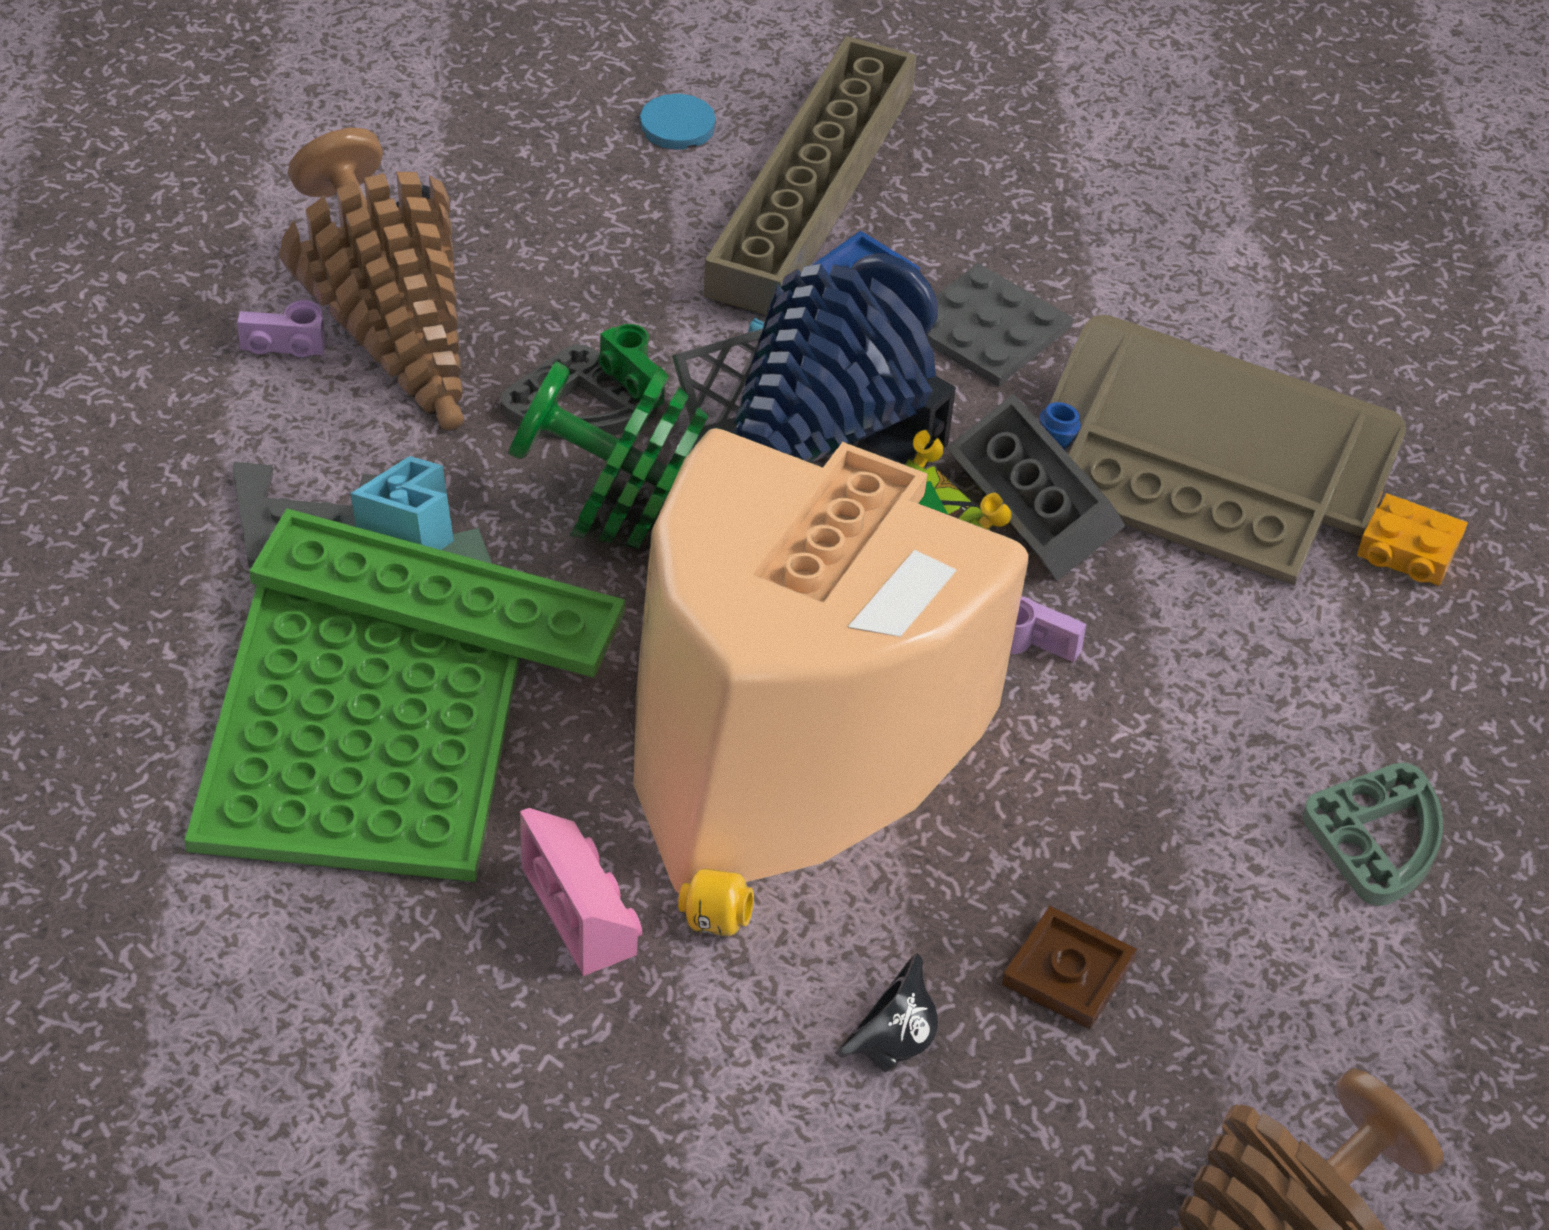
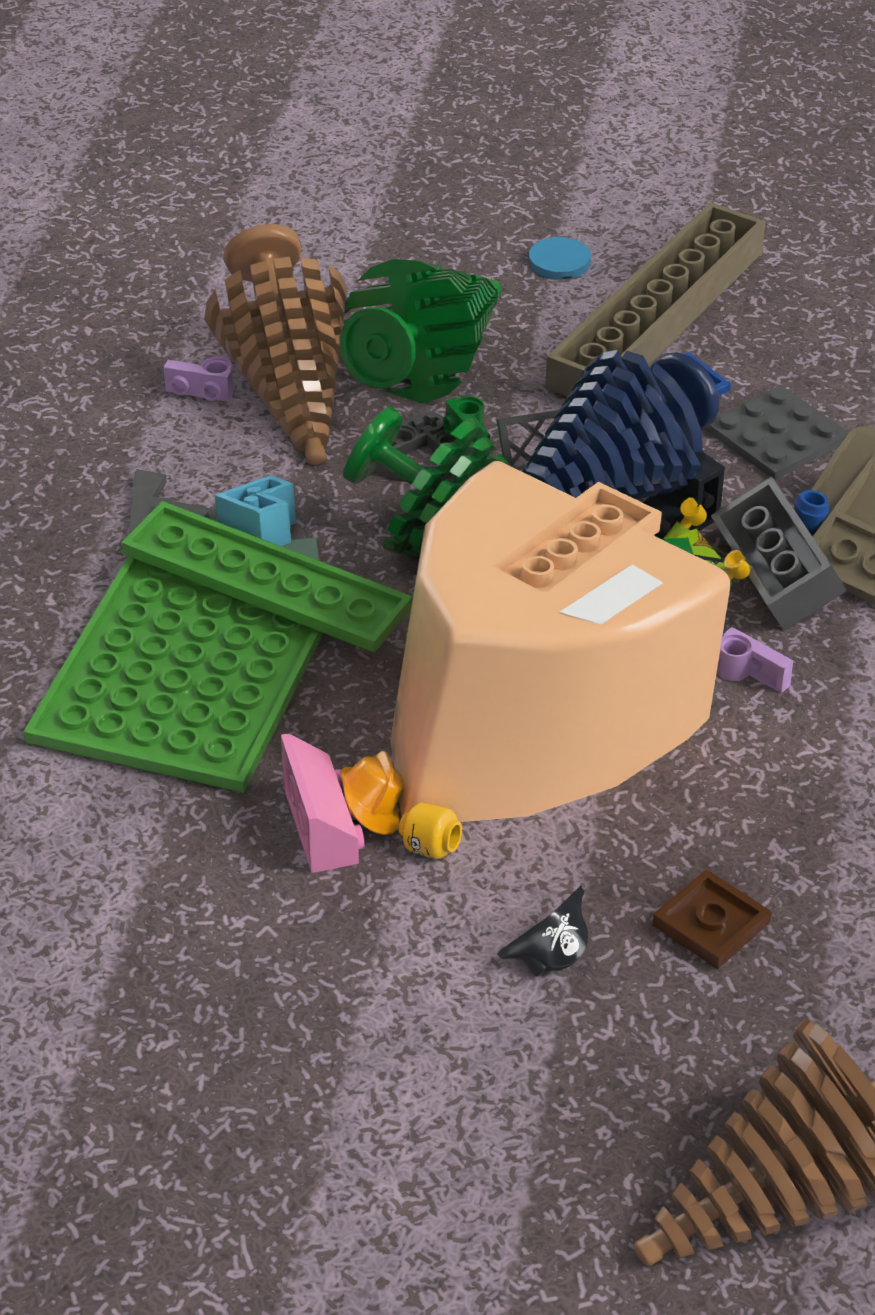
camera: 15 degrees right, 5 degrees down
(543, 242) = (423, 334): none -> green plant
(636, 862) = (373, 792): none -> light orange piece

